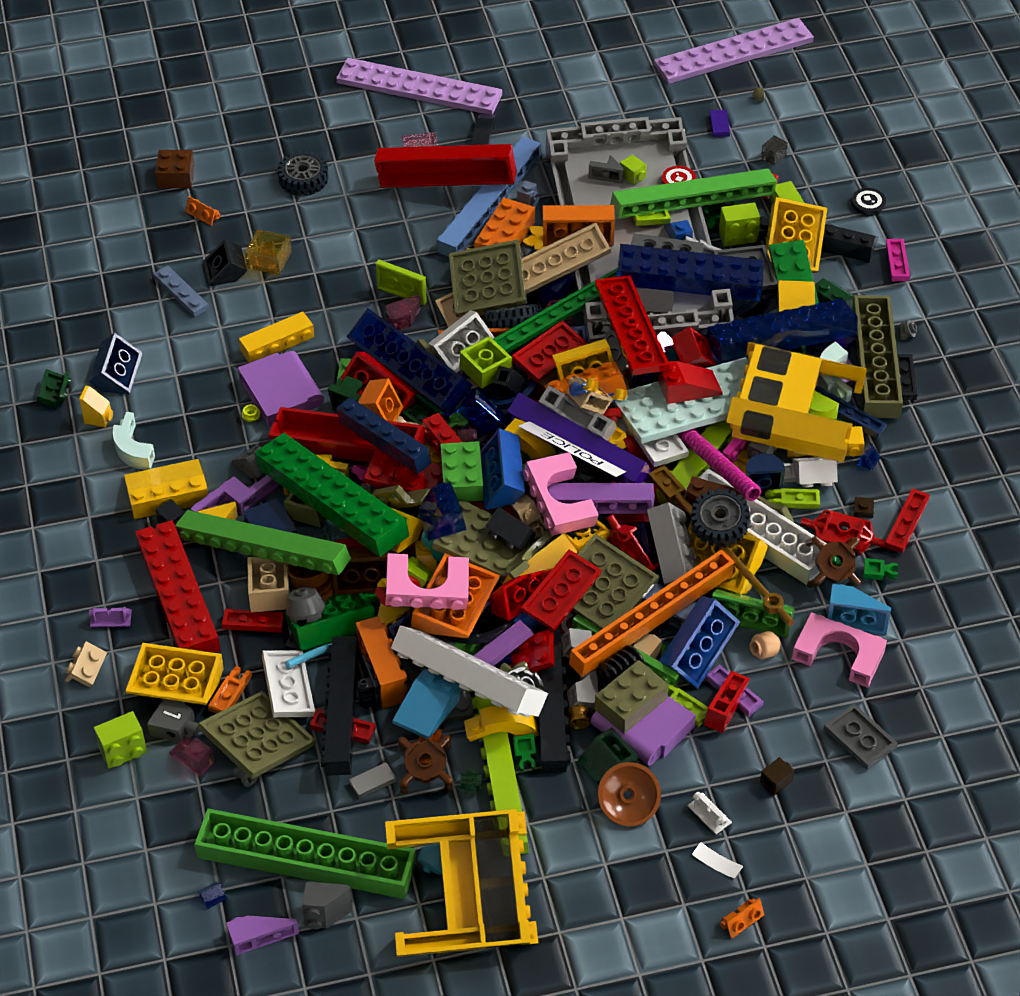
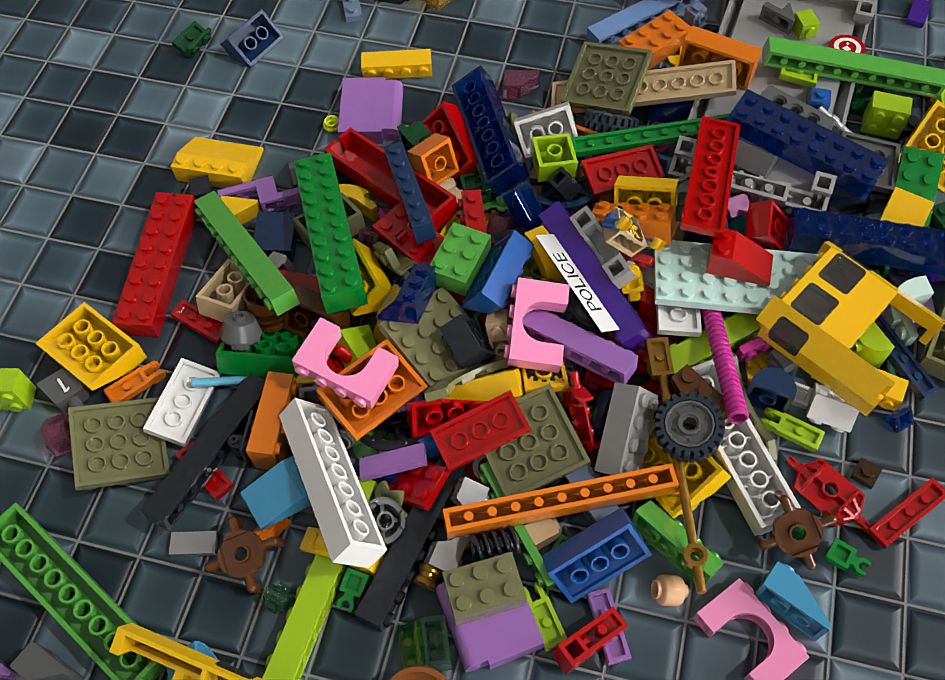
camera: 30 degrees right, 10 degrees up
(86, 664) = (39, 299): tan bracket -> none
(95, 408) = (207, 67): yellow slope -> none
(110, 618) = (90, 263): medium lavender hinge -> none
(129, 451) = (211, 107): light aqua arch -> none
(400, 281) = (531, 53): lime tile -> none

